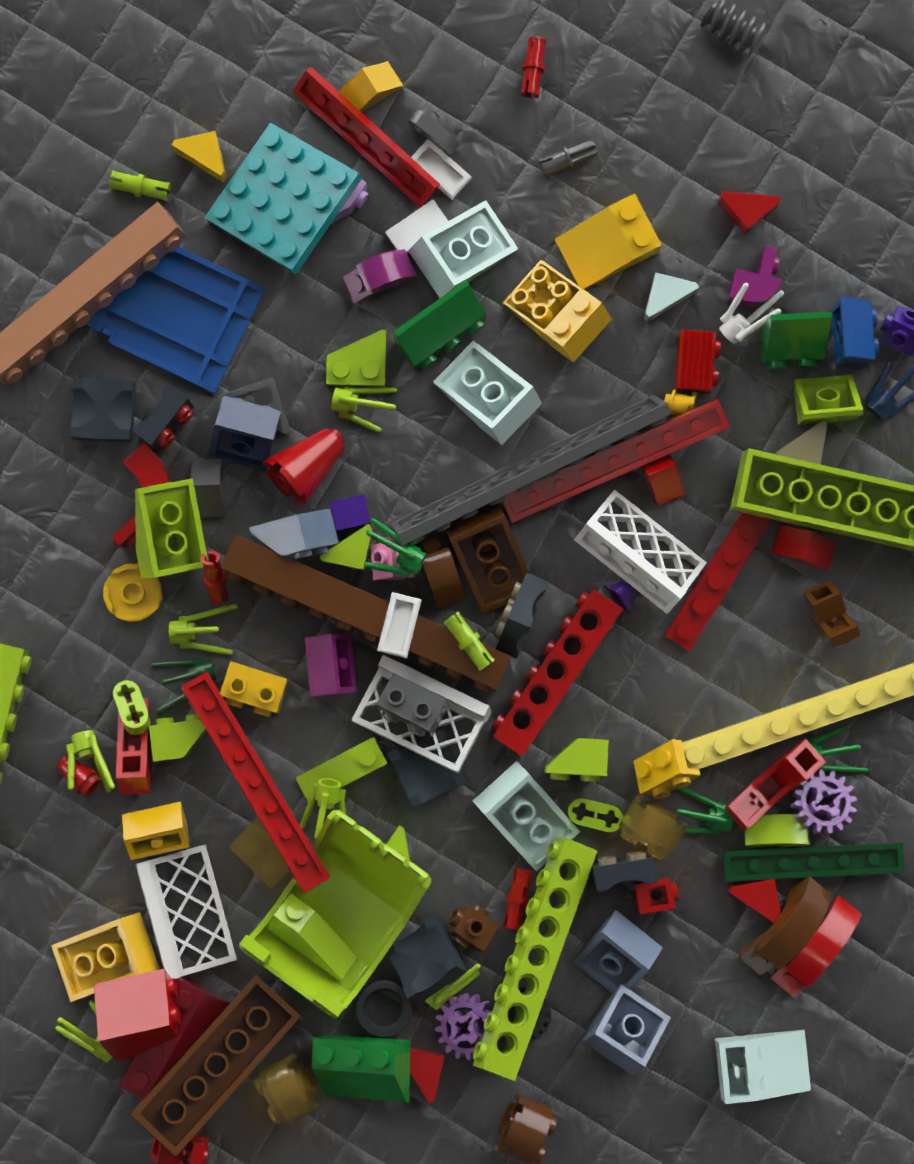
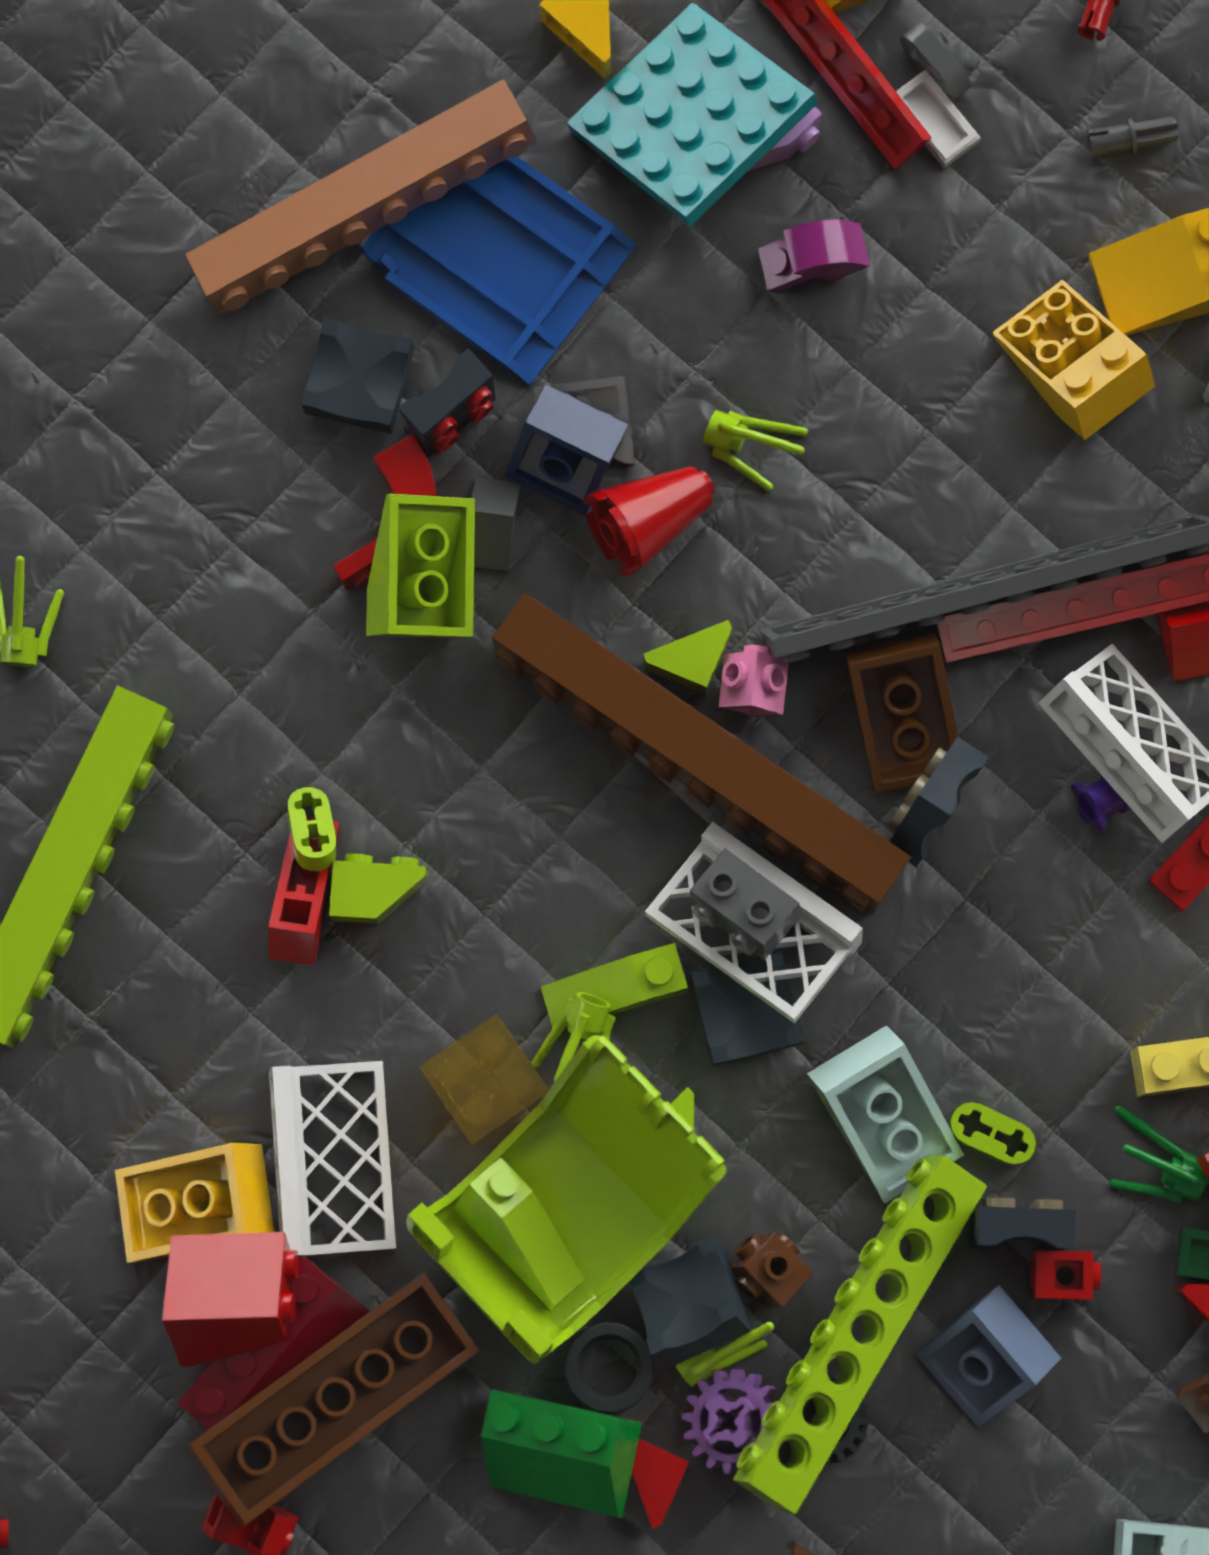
camera: 15 degrees right, 5 degrees down
(82, 1039) = (155, 1339): lime plant -> none
(85, 778) = (211, 918): red cone -> none
(86, 746) = (231, 875): lime plant -> none
(130, 595) = (344, 661): yellow tile -> none
(139, 185) = (479, 58): lime pin -> none
(152, 830) = (311, 1023): yellow brick -> none
(183, 631) = (415, 729): lime plant -> none
(199, 668) = (426, 795): dark green plant -> none
(214, 577) = (477, 656): red pin -> none
(254, 688) = (503, 836): yellow brick -> none
(255, 783) = (481, 977): red plate -> none
(287, 1089) = (435, 1462): clear yellow brick -> none
(299, 534) = (620, 611): sand blue slope -> none
(330, 664) = (628, 822): magenta brick -> none
(350, 513) = (699, 601): dark purple brick -> none
(359, 363) = (757, 381): lime wing -> none
(399, 625) = (748, 776): white tile -> none
(409, 556) = (782, 678): green plant -> none
(414, 226) = (885, 197): white tile -> none
(440, 326) = (893, 346): green slope -> none
(441, 571) = (824, 714): reddish brown brick -> none
(462, 248) = (946, 240): light aqua slope -> none
(468, 641) = (851, 819): lime pin -> none
(488, 392) = (947, 460): light aqua slope -> none
(517, 899) = (848, 1239): red pin -> none
(580, 758) = (991, 1039): lime slope -> none
(605, 613) = (1064, 826): red brick -> none
(627, 1030) = (981, 1477): sand blue slope -> none
(652, 826) = (1079, 1166): clear yellow brick -> none
(664, 770) = (1113, 1082): yellow bracket -> none

